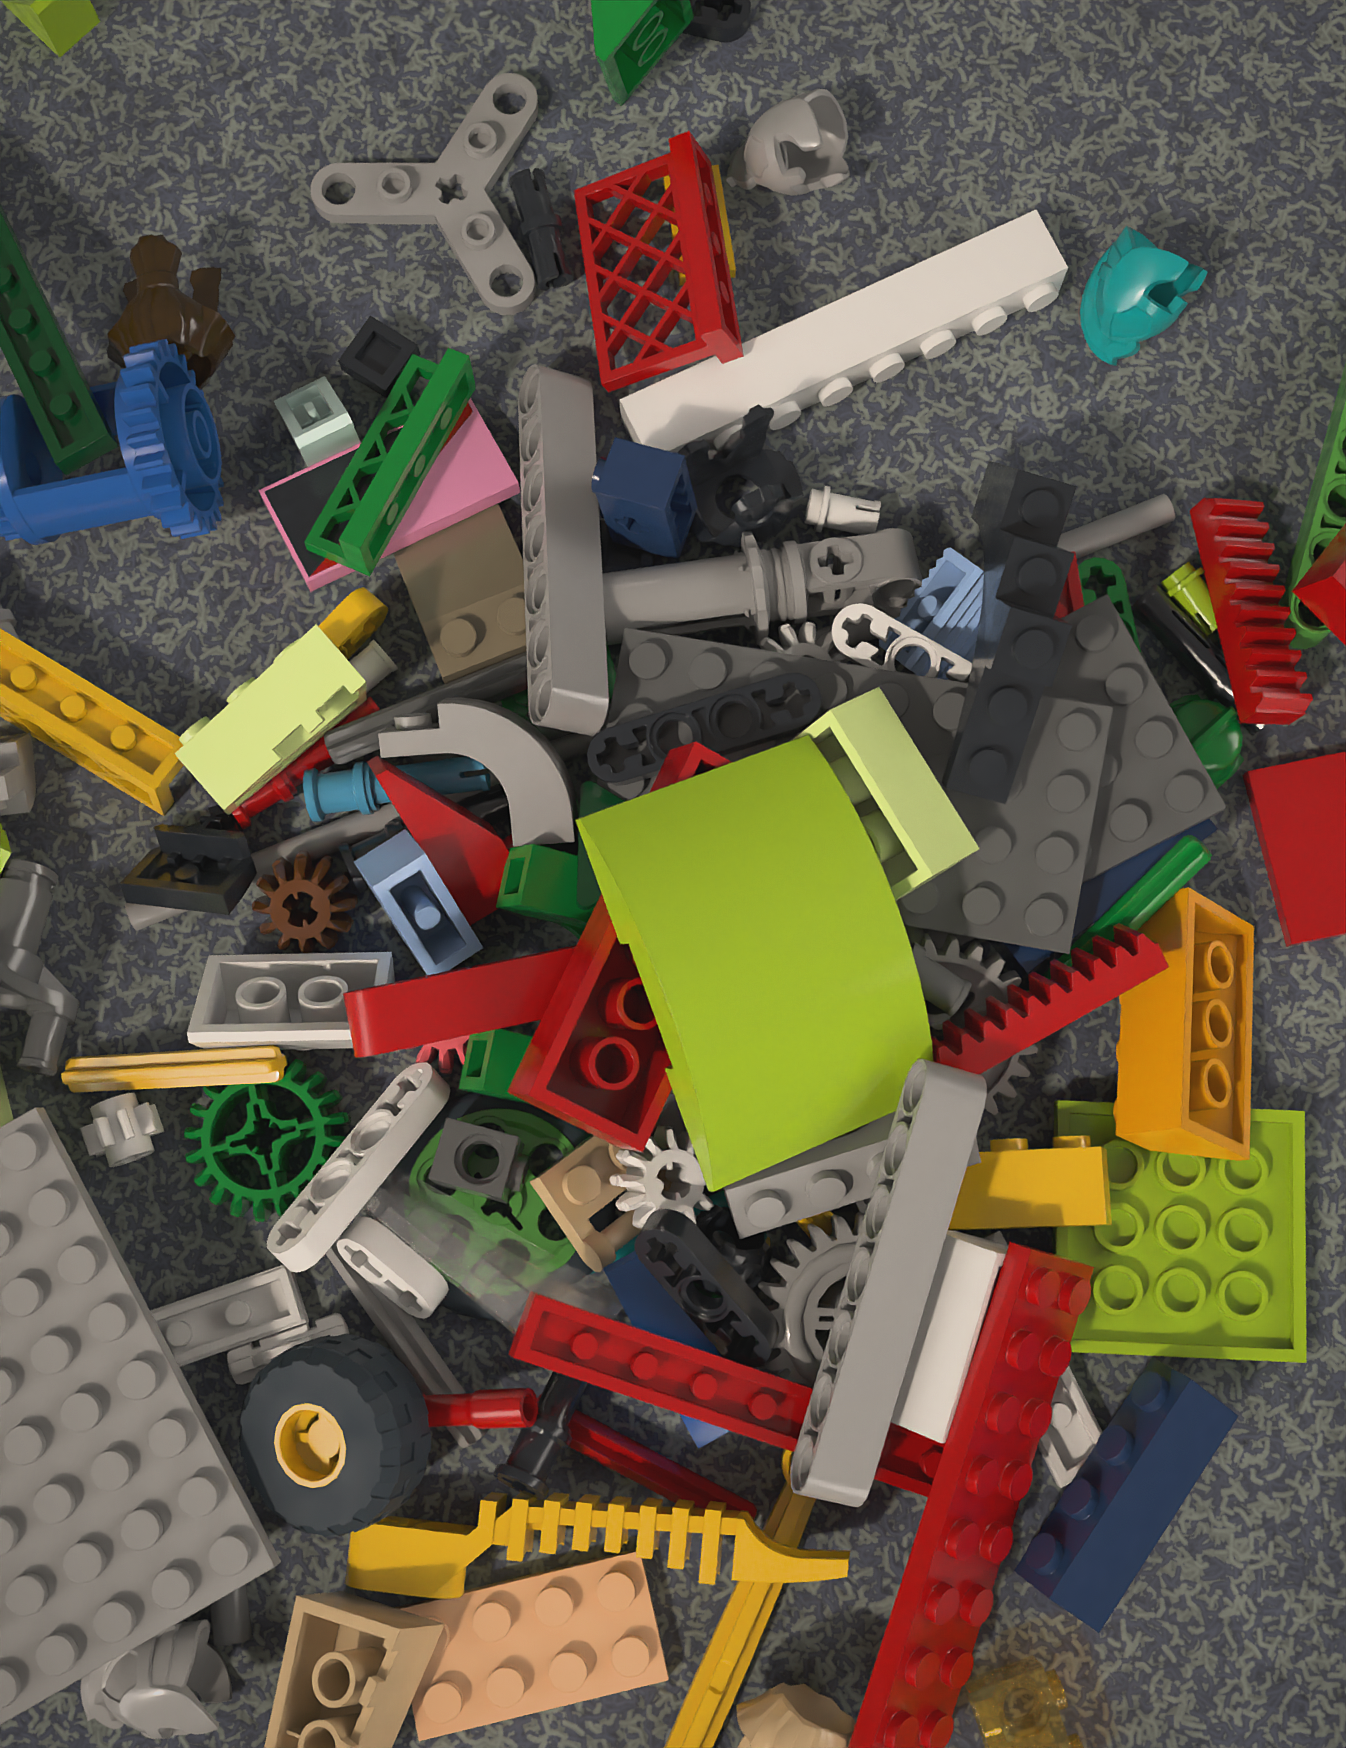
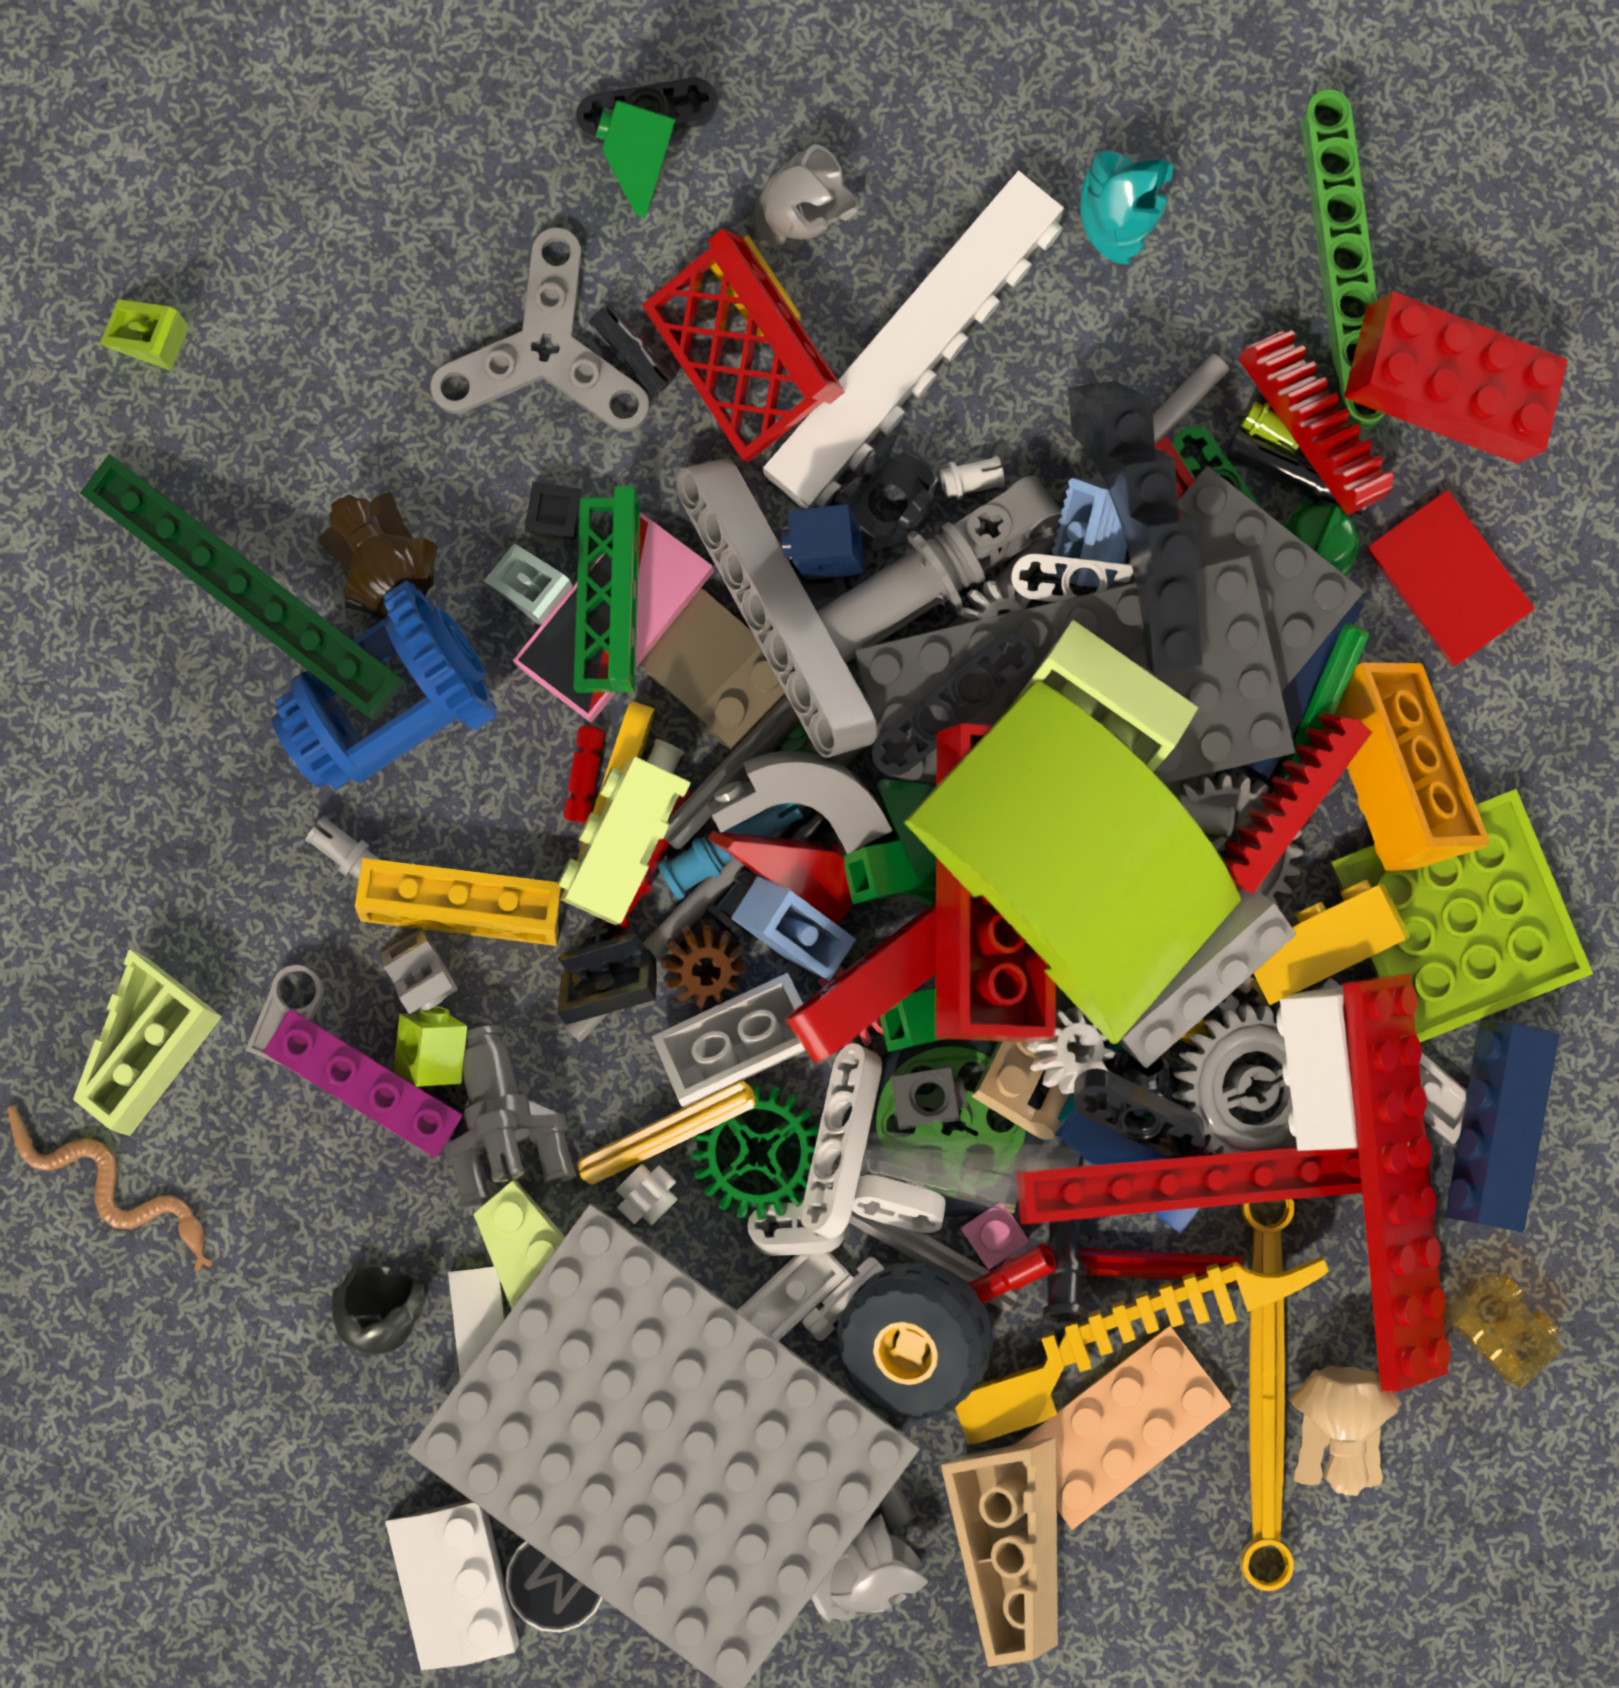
camera: 25 degrees left, 5 degrees up
(252, 1251) = (791, 1236): none -> white beam
(302, 614) = (584, 774): none -> red axle
(485, 1355) = (994, 1236): none -> bright pink plate
(888, 1283) = (1268, 1051): light grey beam -> none

